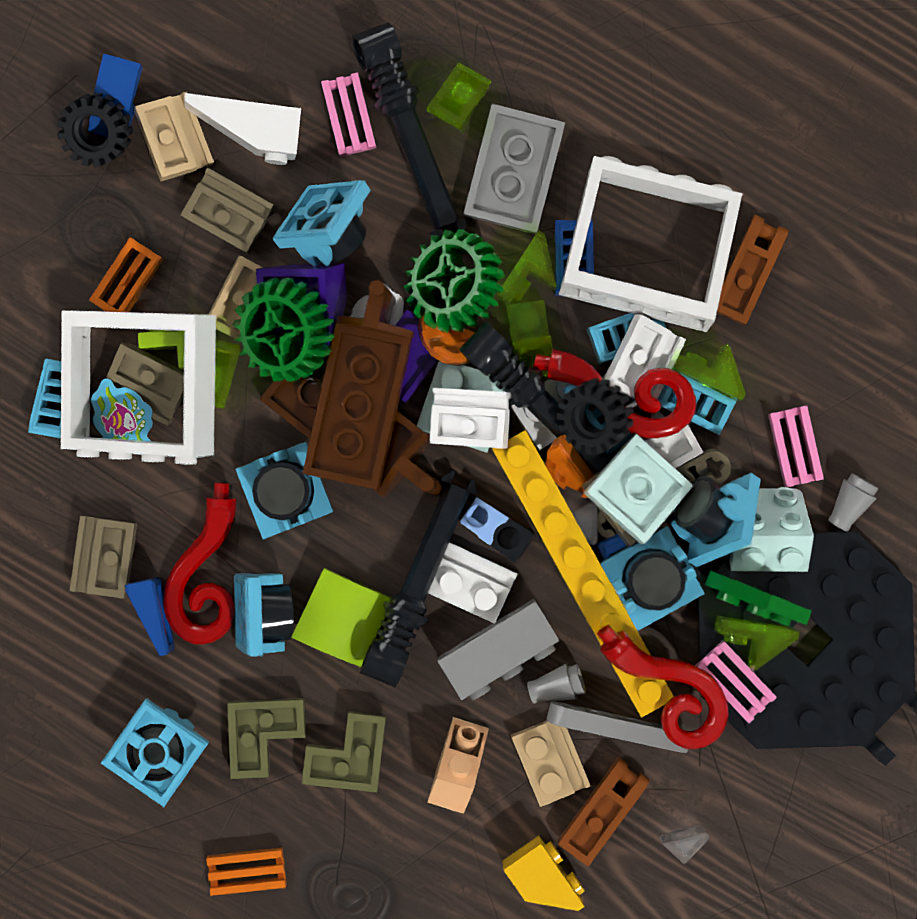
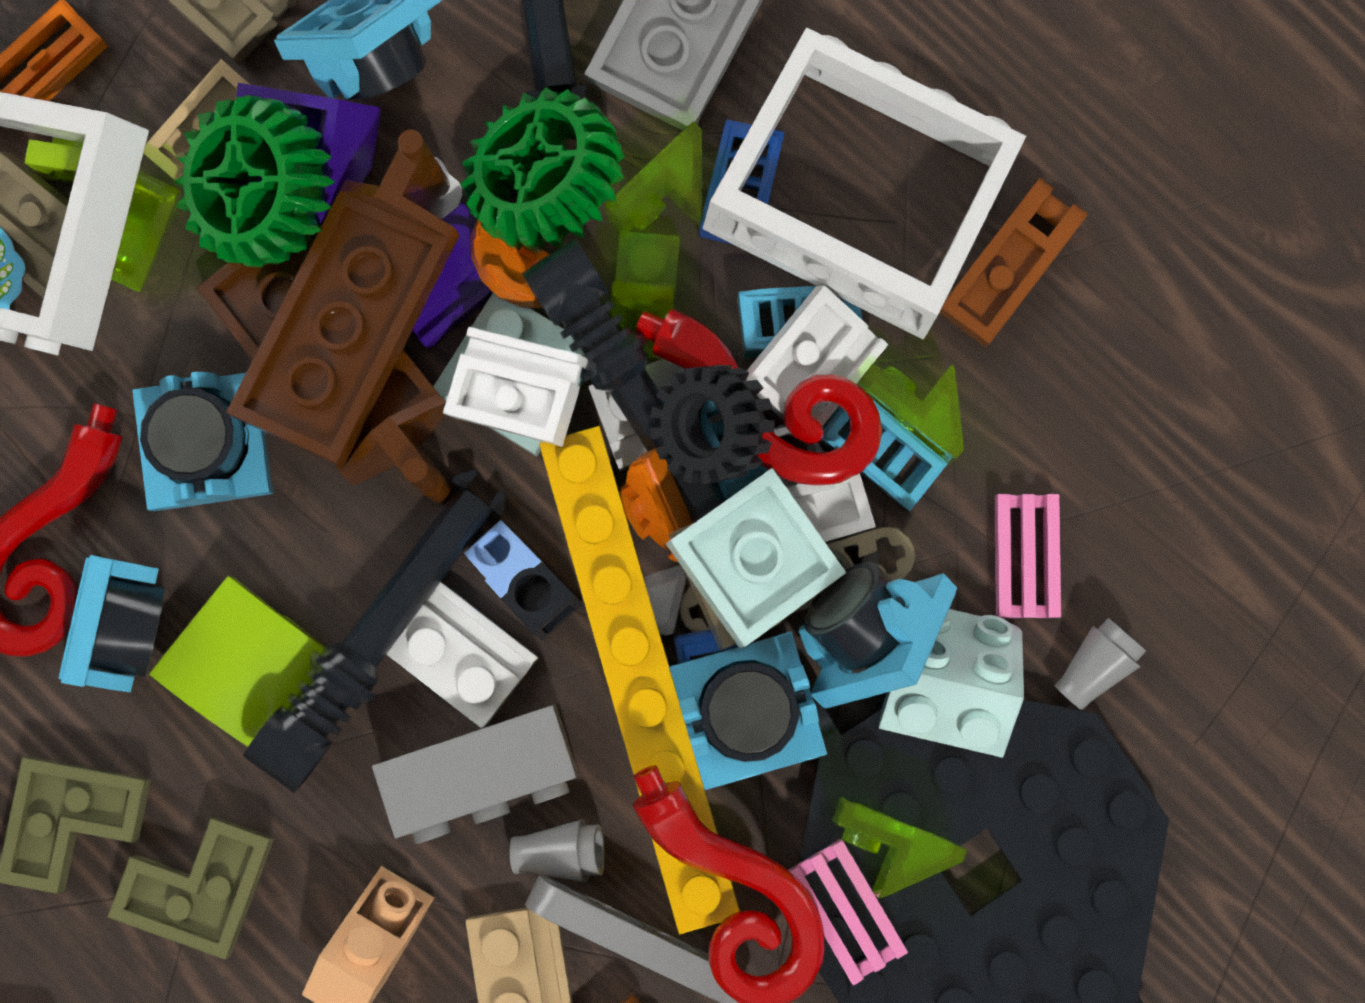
camera: 10 degrees right, 5 degrees down
(759, 601) = (911, 784): green plate -> none

